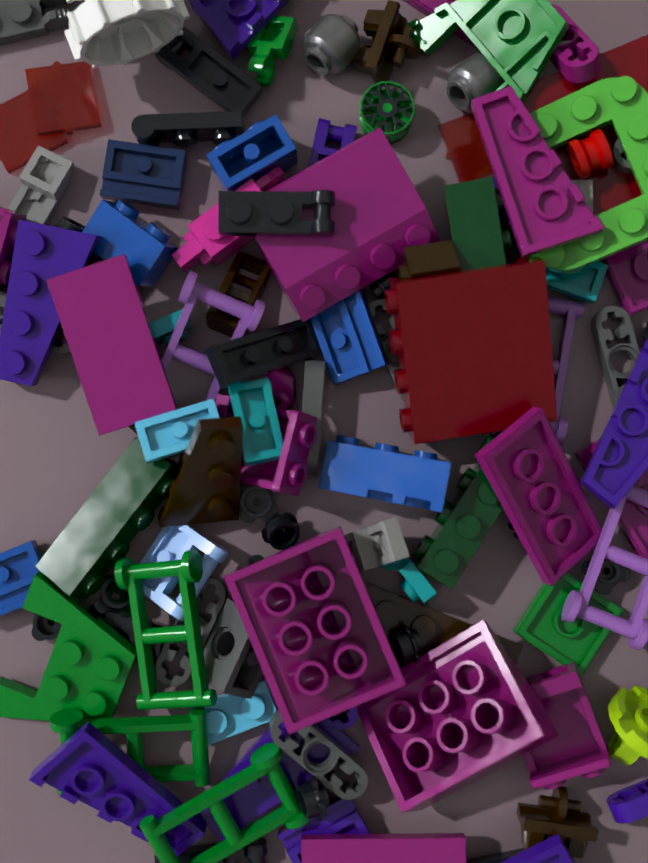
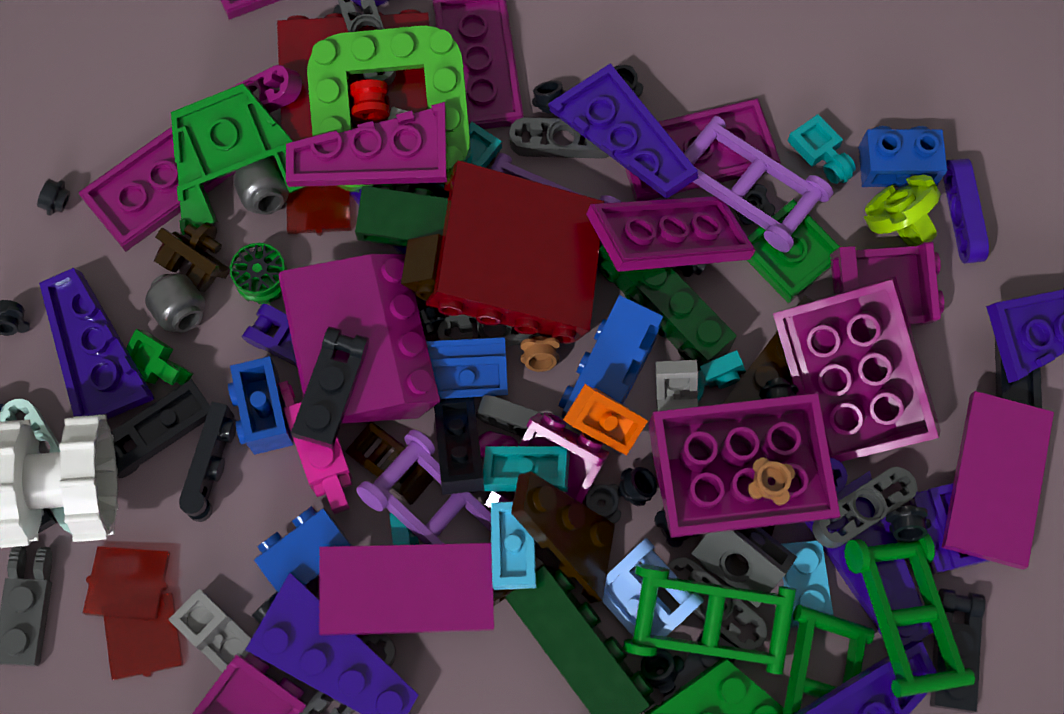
camera: 75 degrees left, 15 degrees down
(143, 174) = (236, 521): dark blue plate -> none
(309, 669) = (782, 475): none -> medium nougat plate
(323, 482) = (605, 419): none -> orange slope
(384, 403) = (540, 353): none -> medium nougat plate
(556, 816) = (972, 308): dark brown hips -> none

